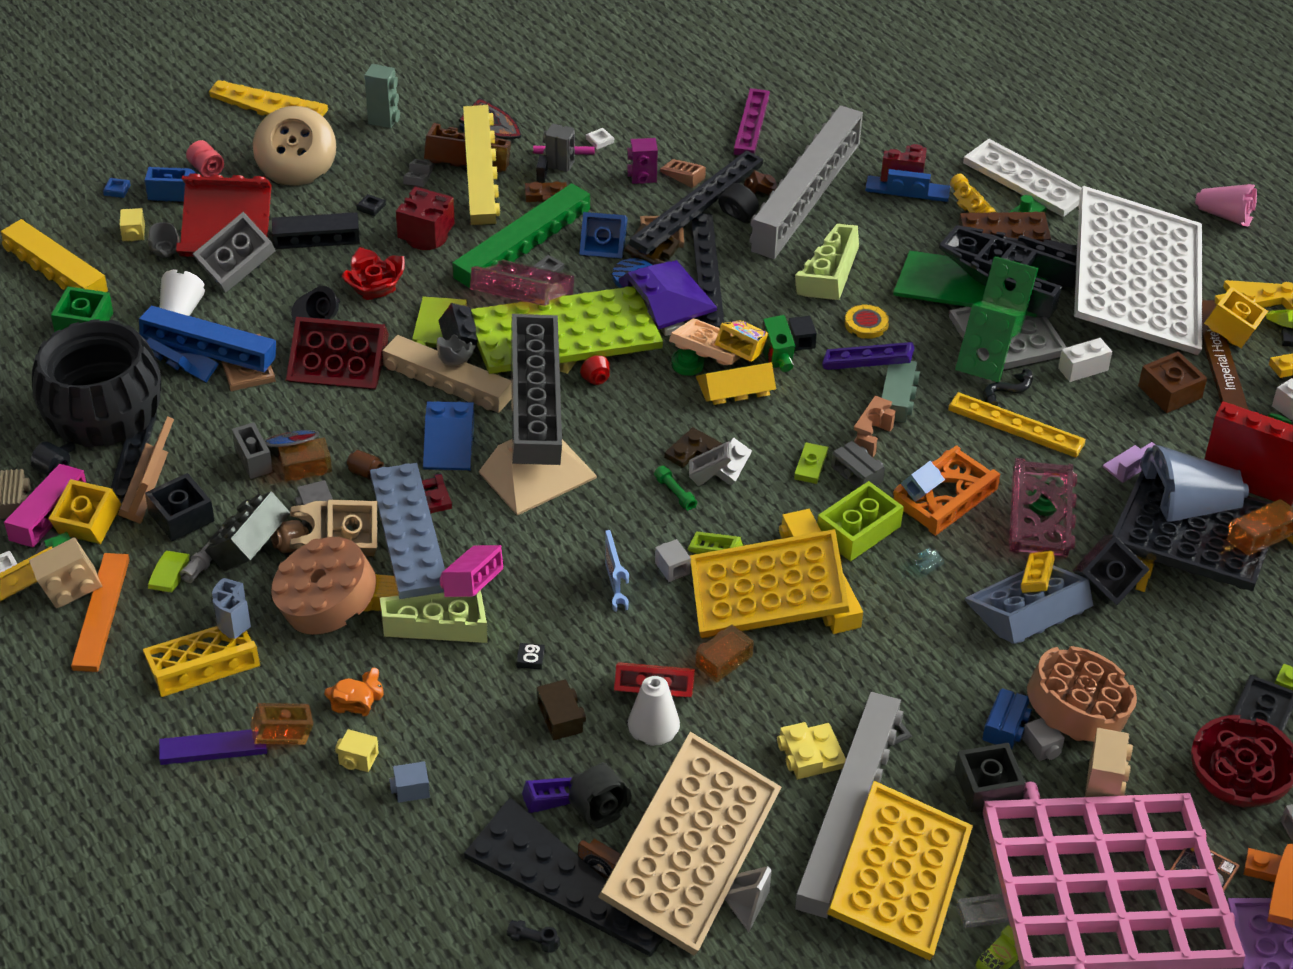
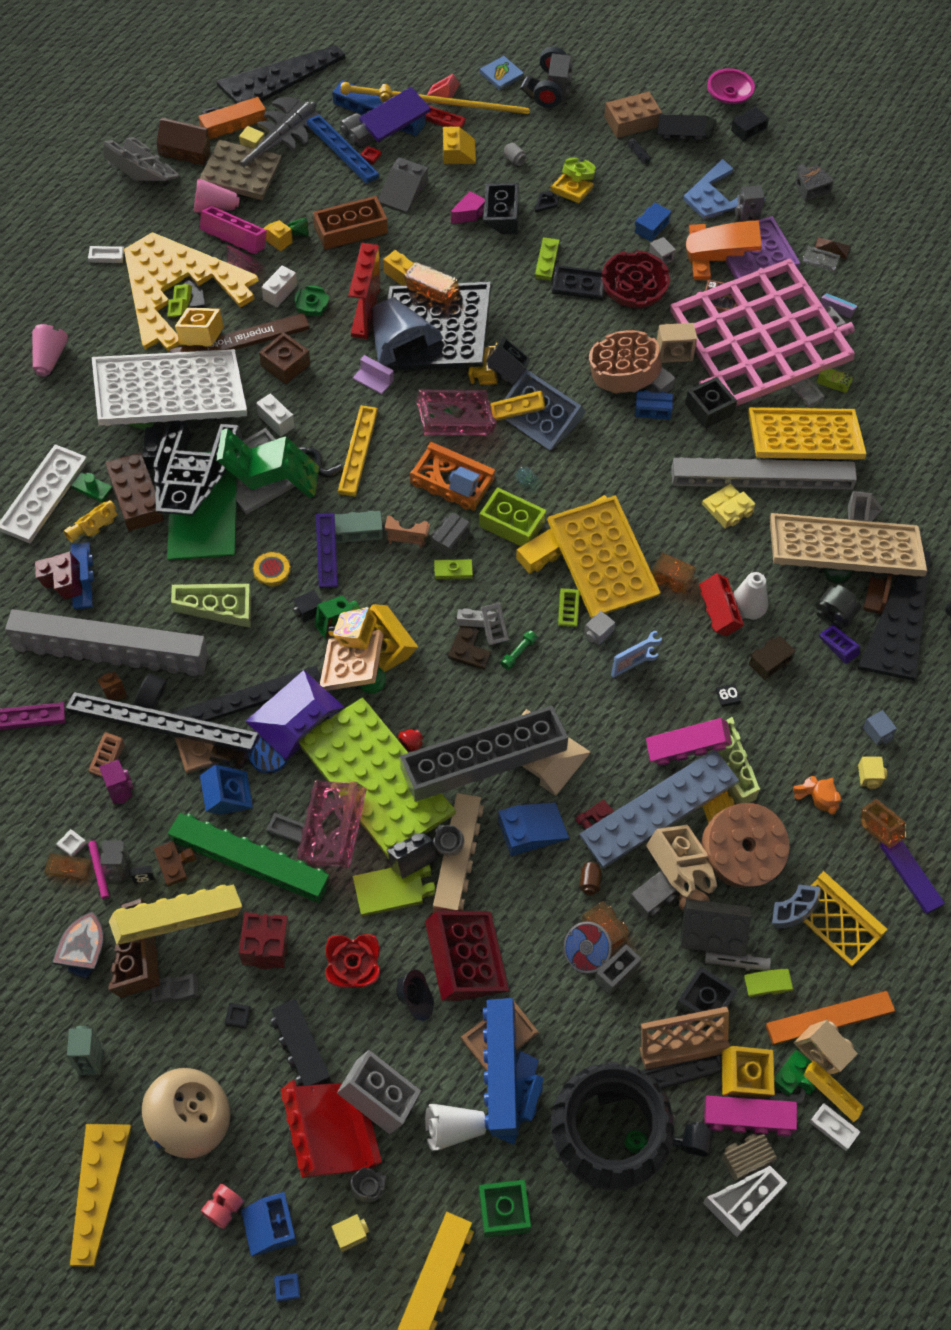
camera: 110 degrees left, 15 degrees up
(582, 127) = (67, 866): none -> clear orange plate

